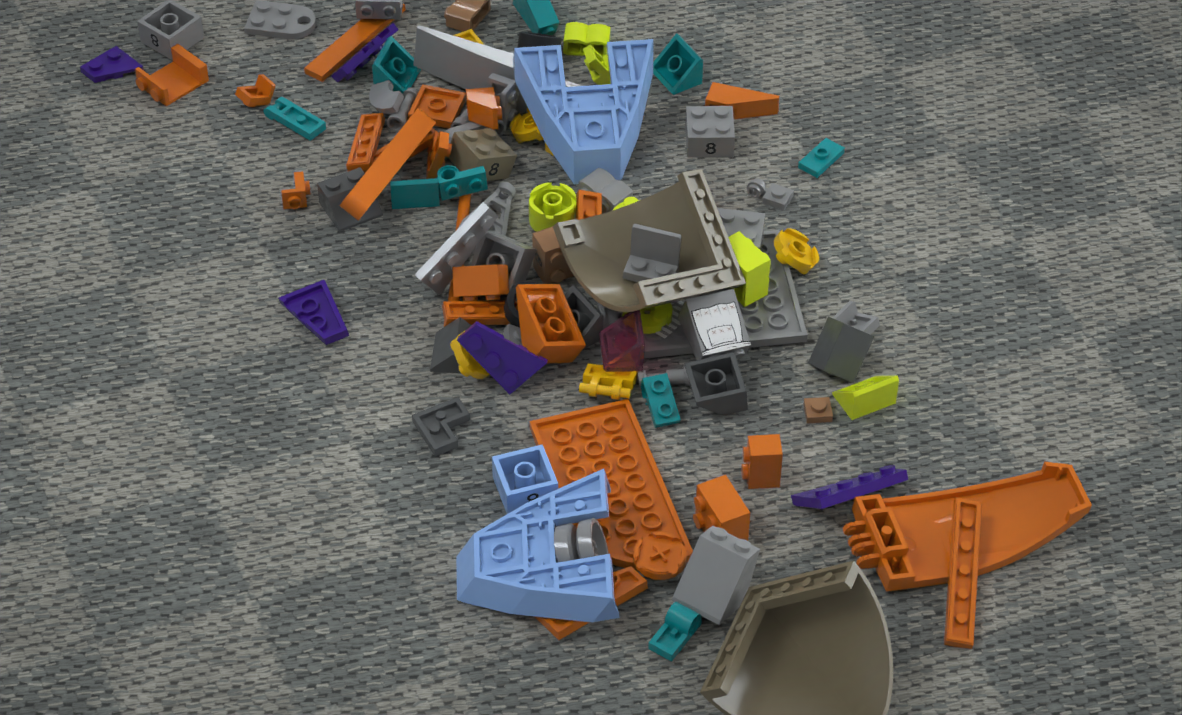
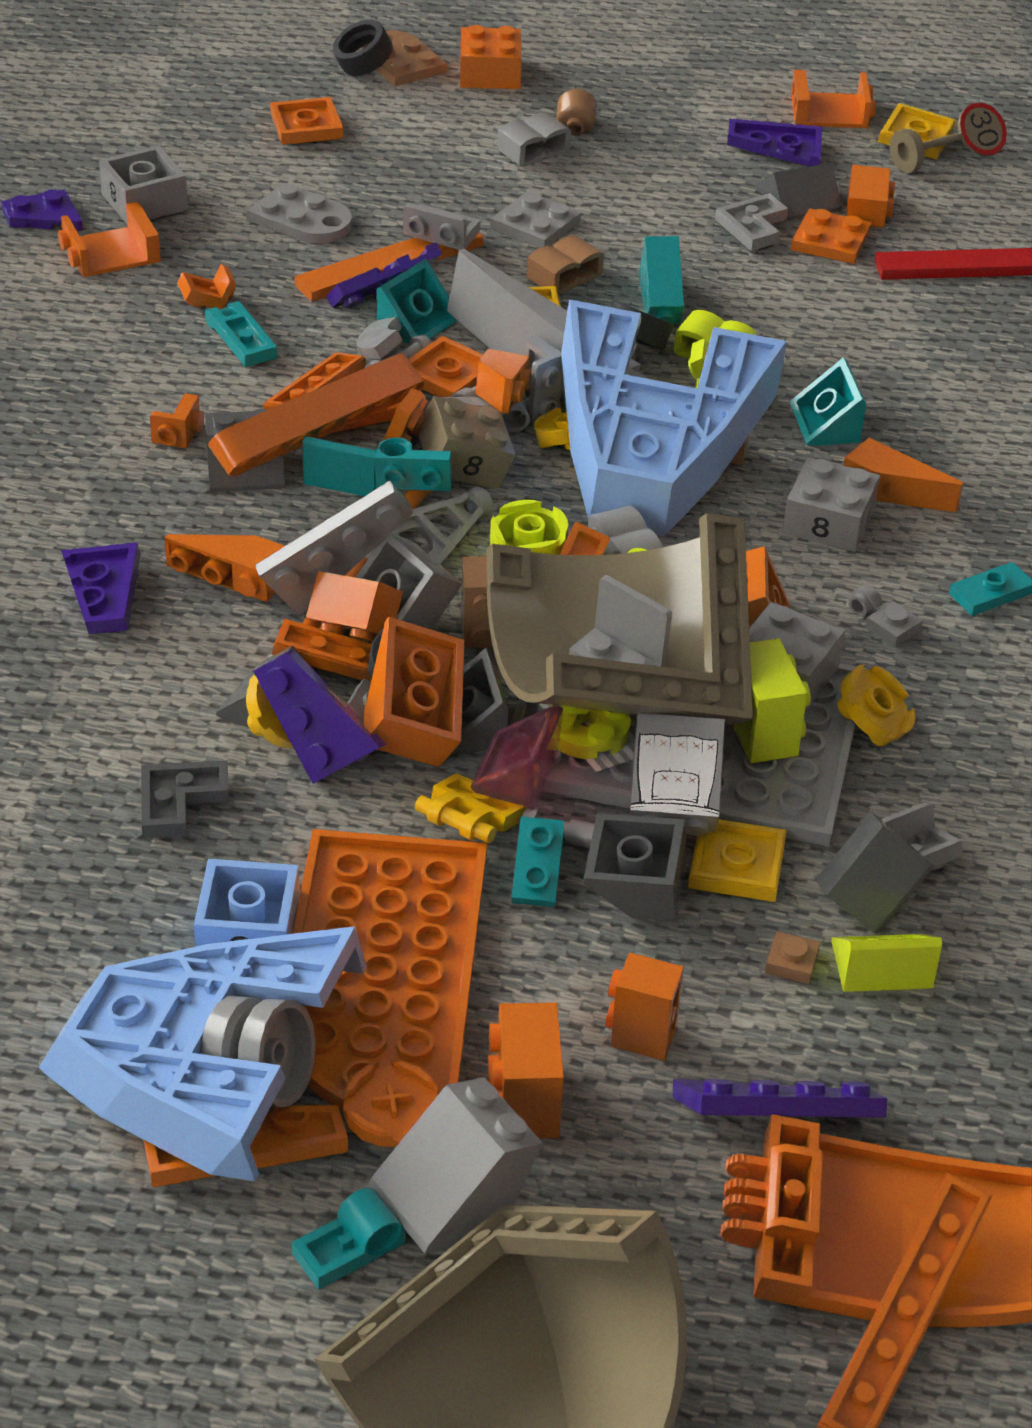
camera: 20 degrees right, 5 degrees down
(384, 274) = (222, 560): none -> orange slope
(766, 365) = (739, 860): none -> yellow plate

